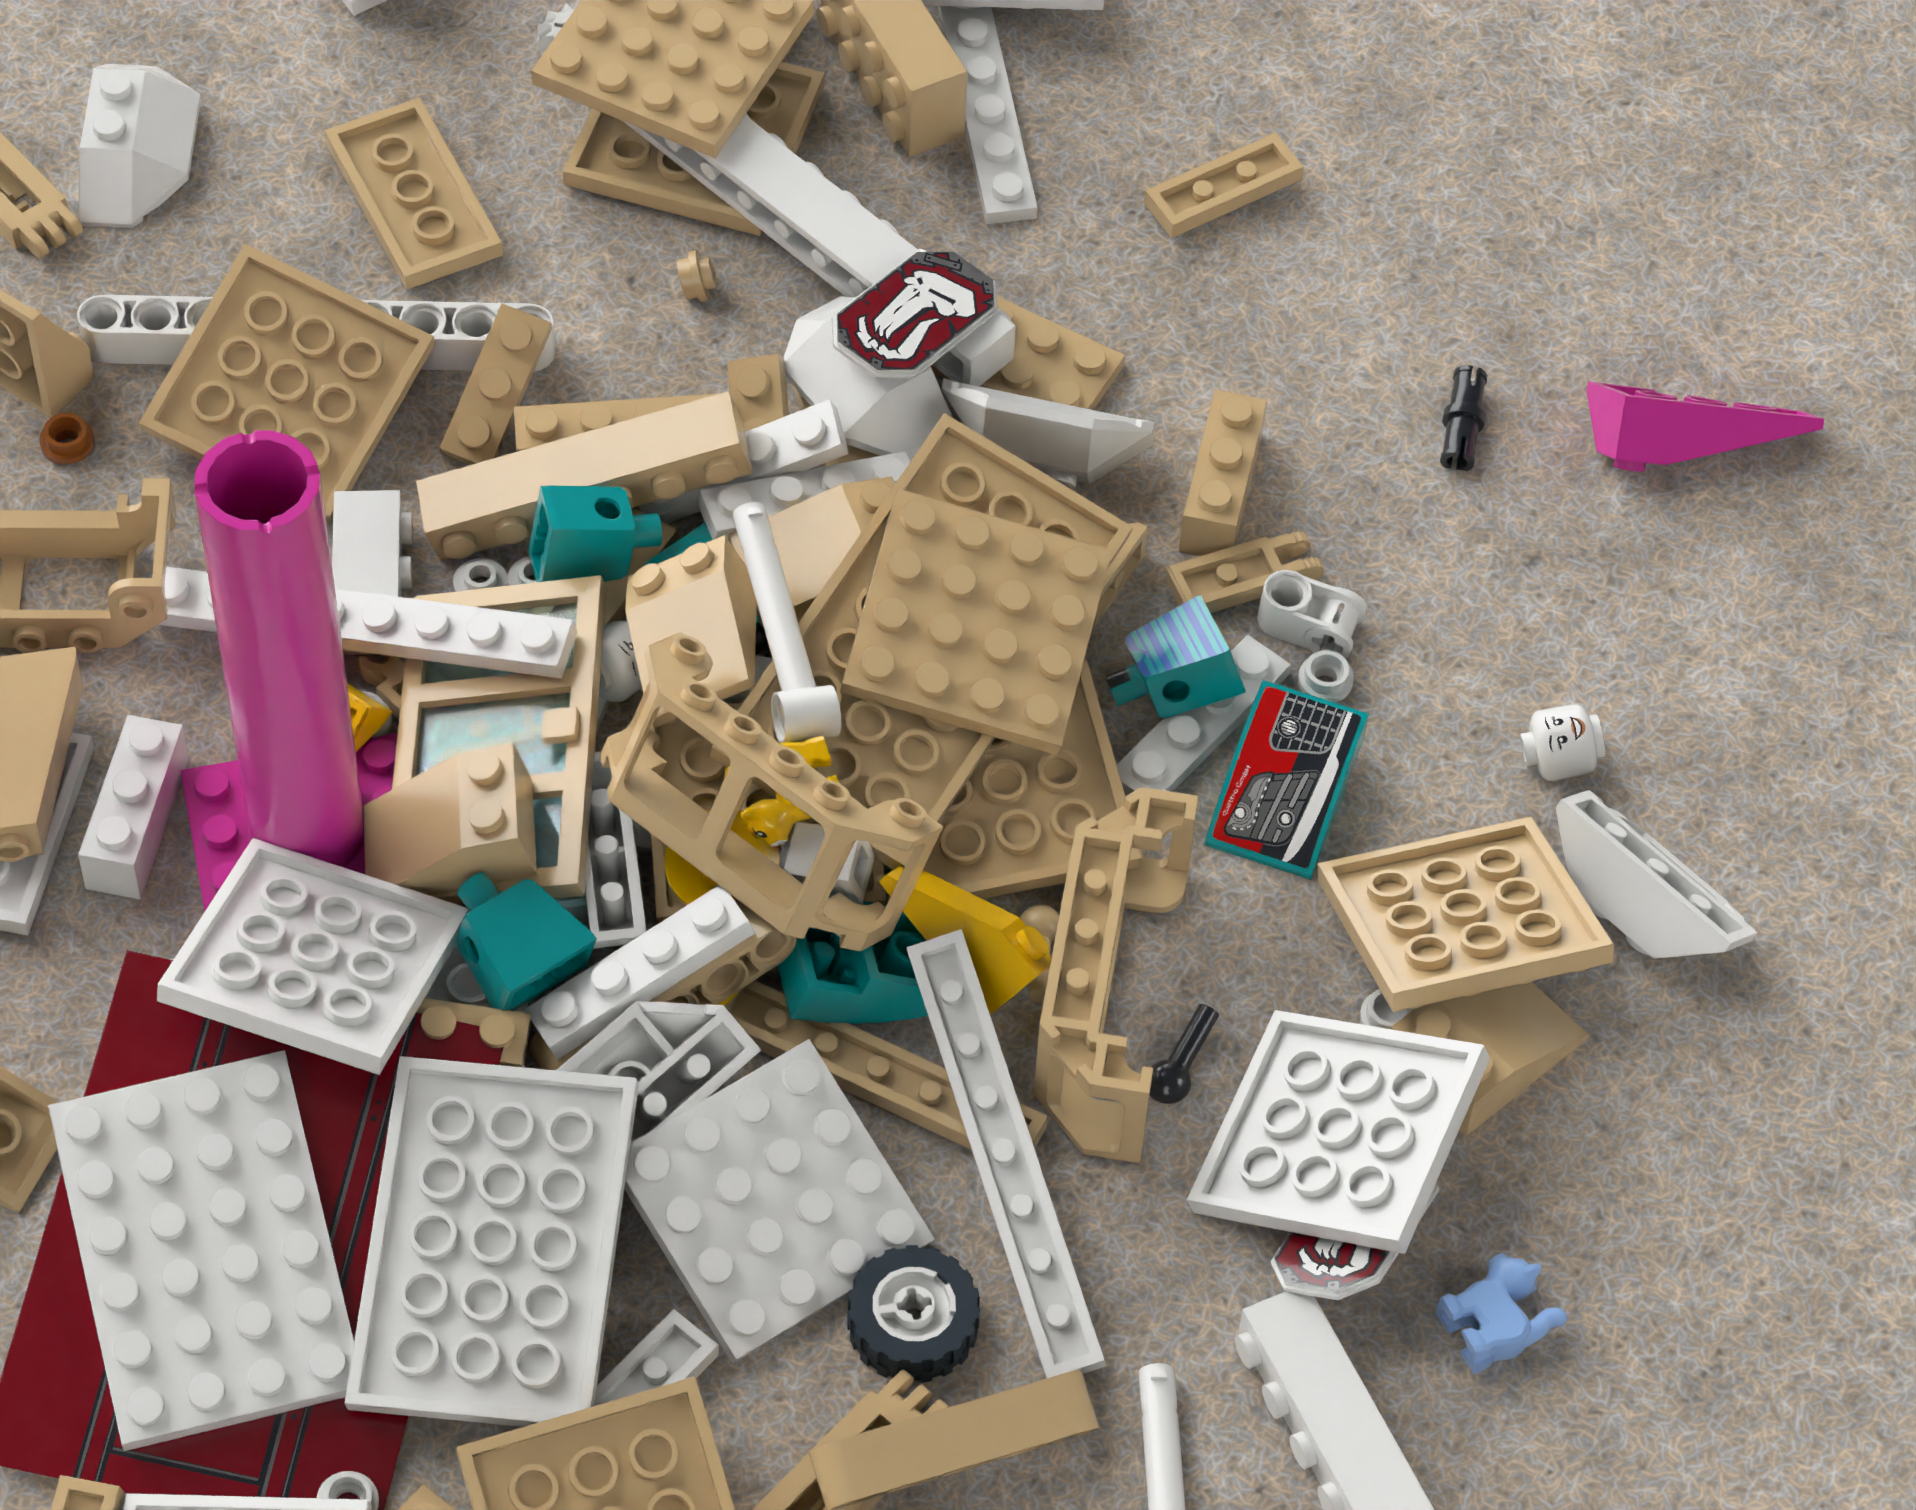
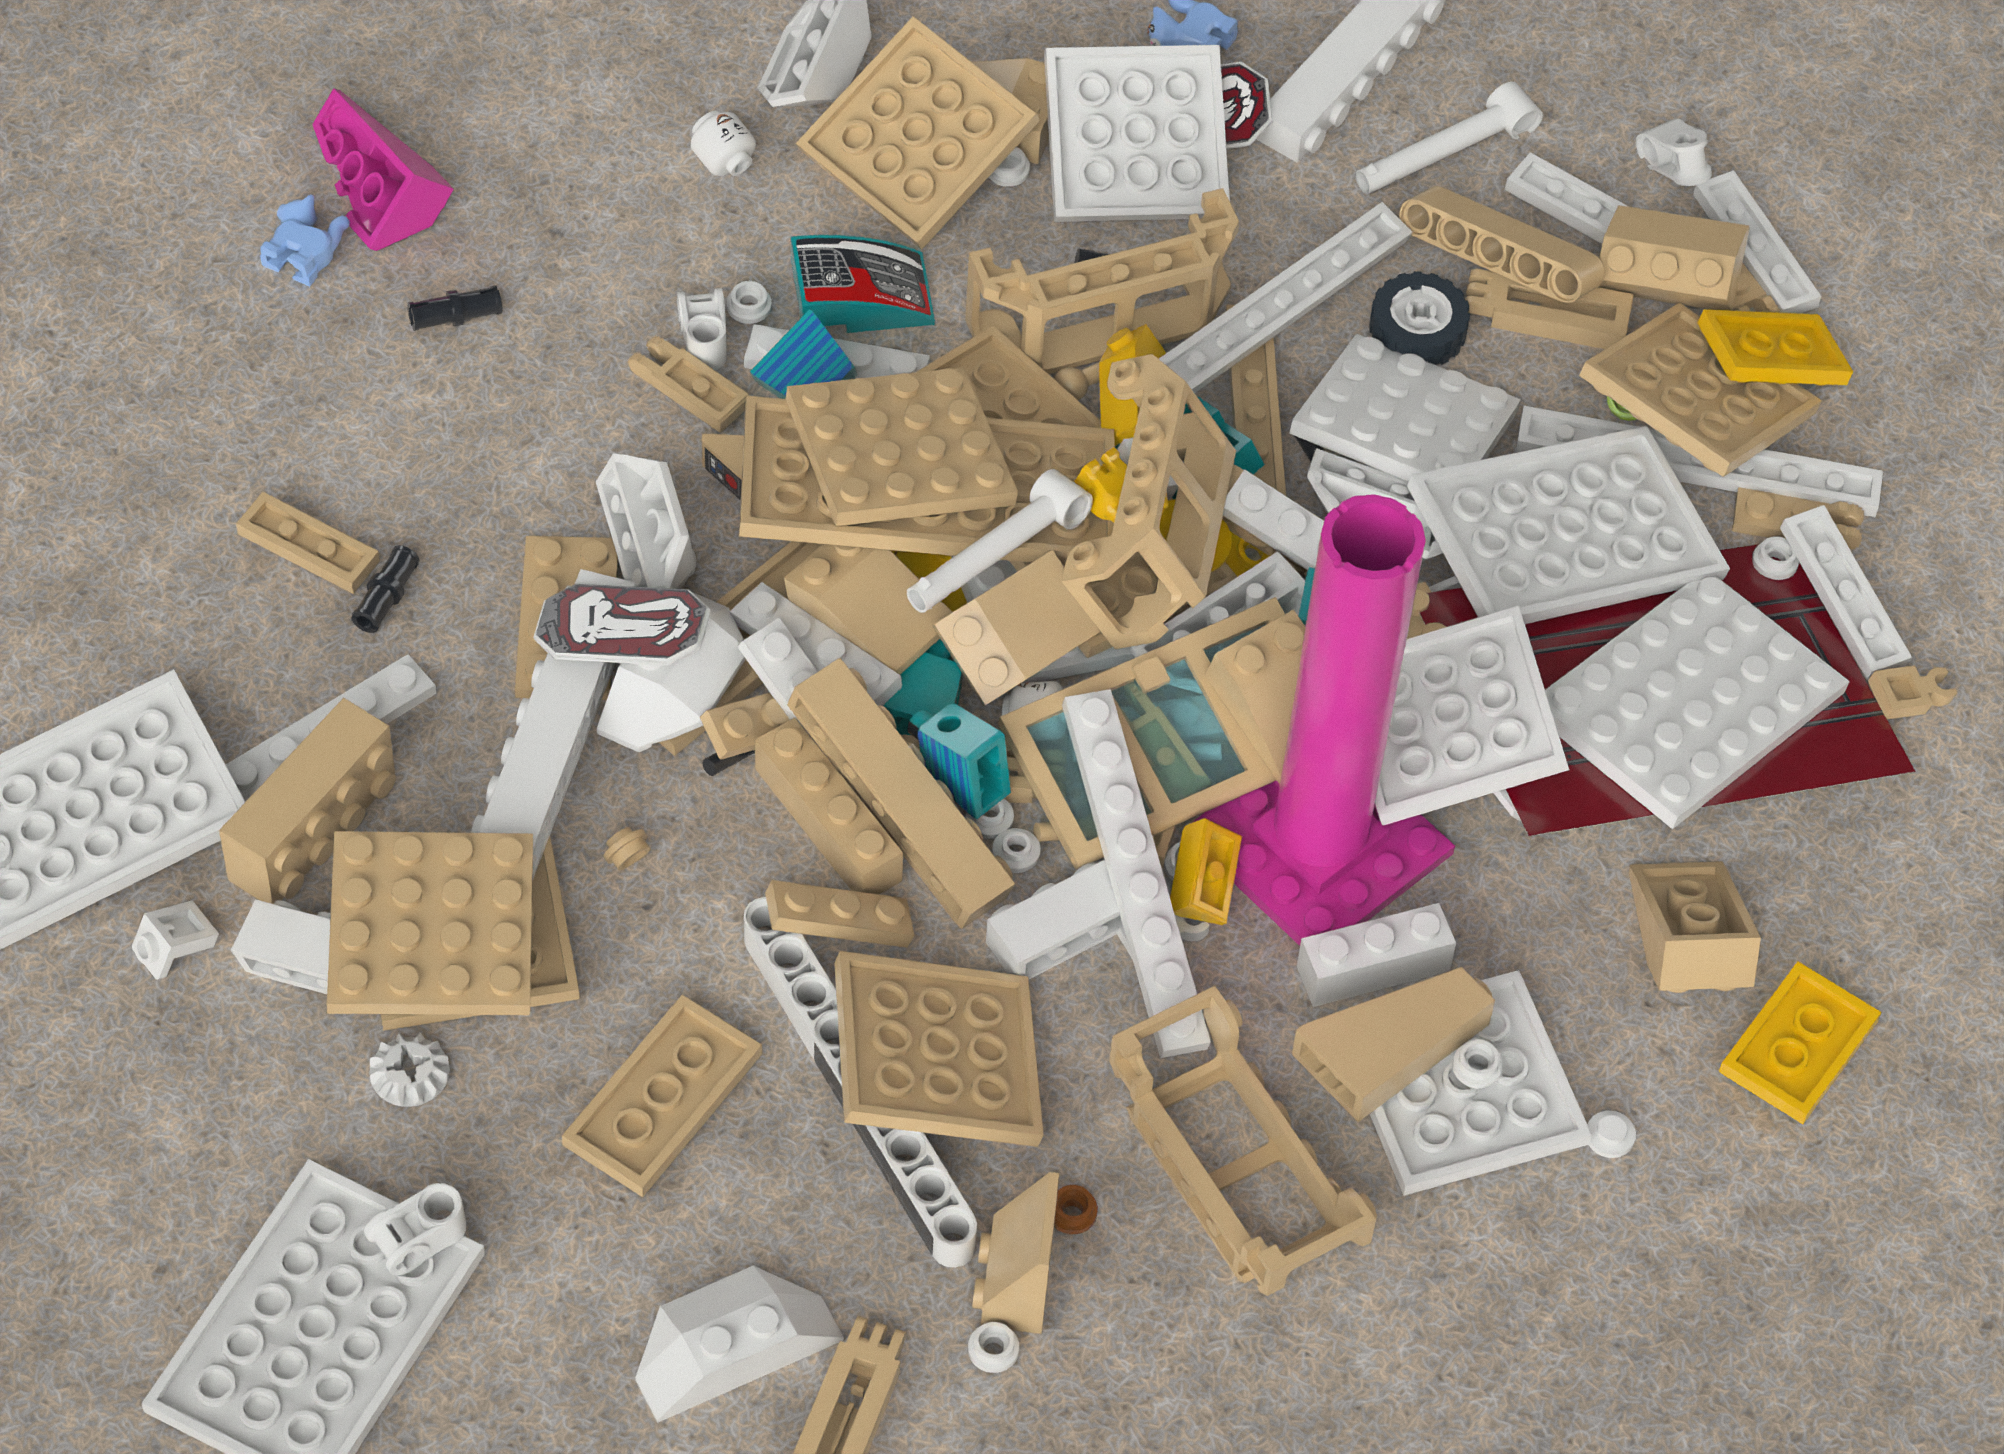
camera: 120 degrees left, 0 degrees up
(1128, 221) = (385, 589): none -> black pin
(1222, 473) = (612, 420): tan brick -> none
(1625, 323) = (300, 243): none -> light blue animal

